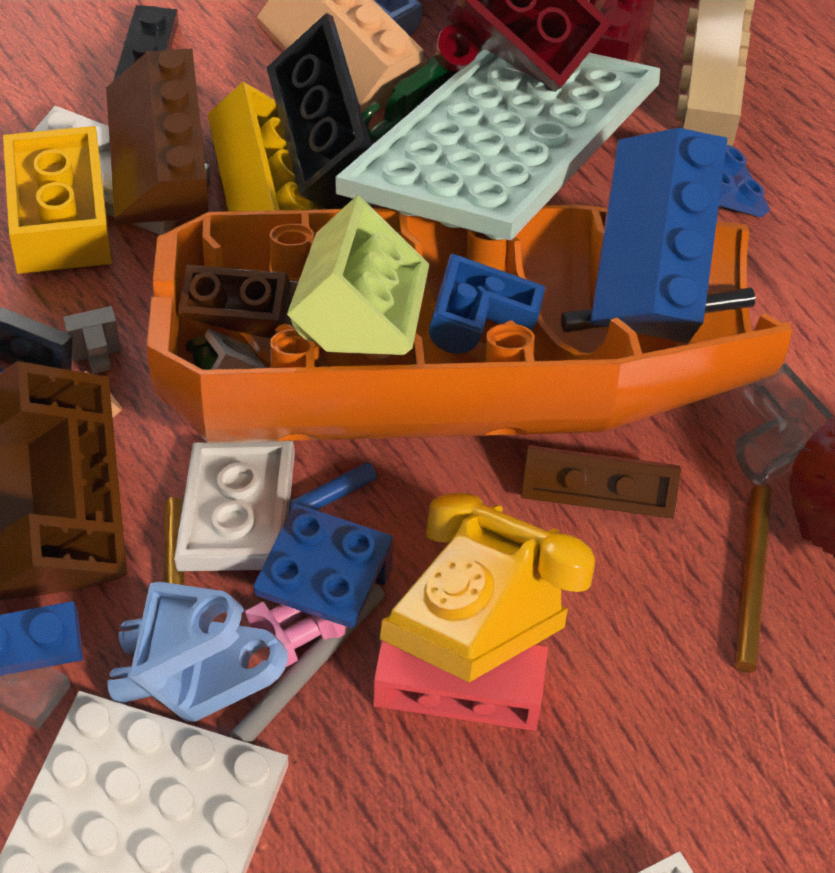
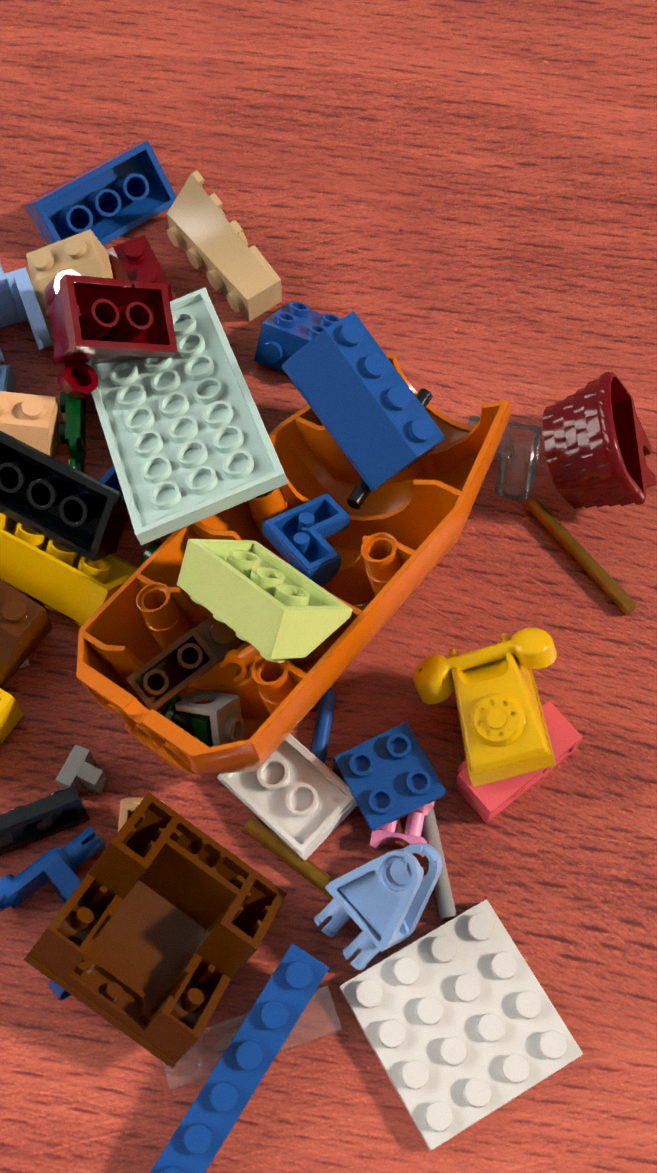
camera: 45 degrees left, 10 degrees up
(601, 481) = (457, 577): reddish brown plate -> none

